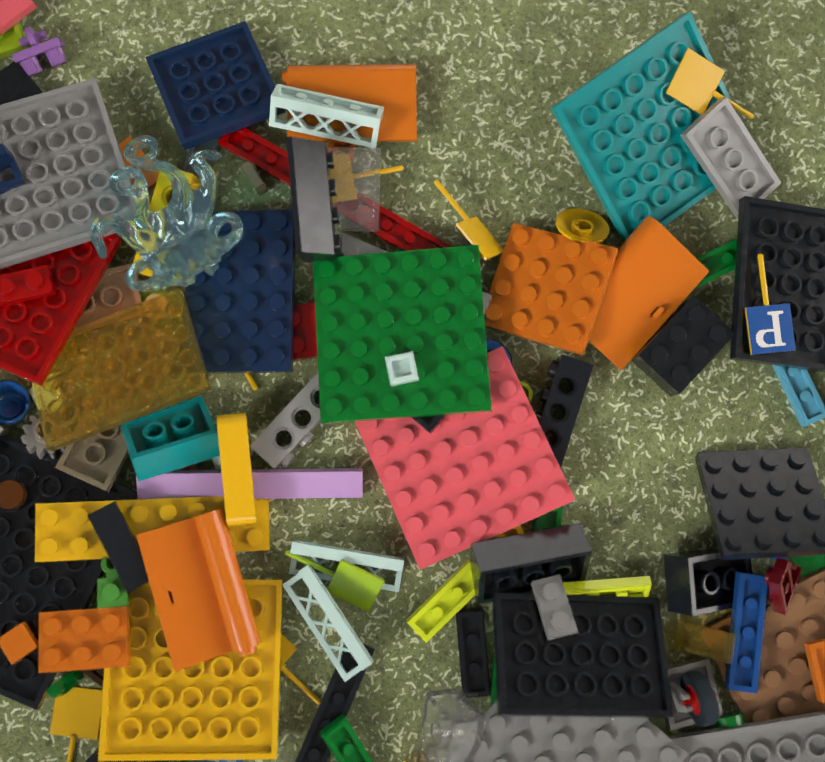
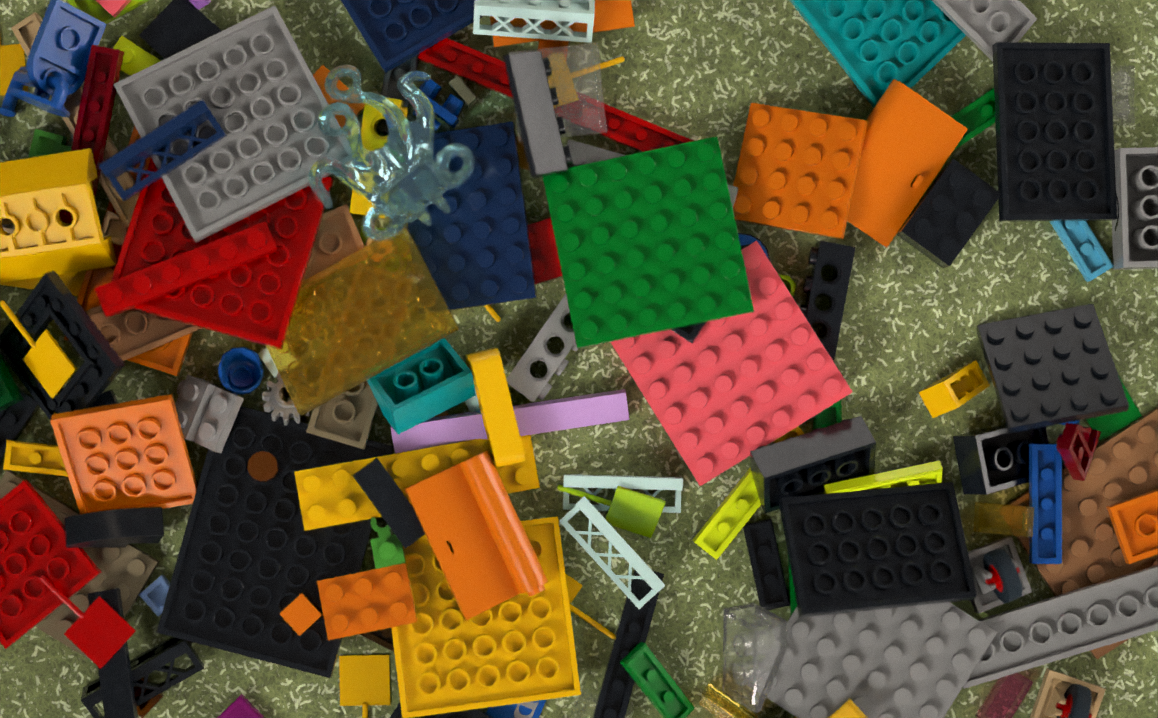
camera: 10 degrees left, 5 degrees up
(65, 684) = (347, 655): green tile -> none
(238, 194) = (448, 111): none -> blue hips
(402, 368) = (655, 280): light aqua tile -> none
(473, 229) = (710, 117): yellow piece -> none
(554, 607) = (843, 504): light grey plate -> none
(582, 225) = (826, 96): yellow dish -> none
(669, 510) = (954, 389): none -> yellow arch
(730, 720) = (1038, 596): green tile -> none
(769, 325) = (1036, 181): blue piece -> none

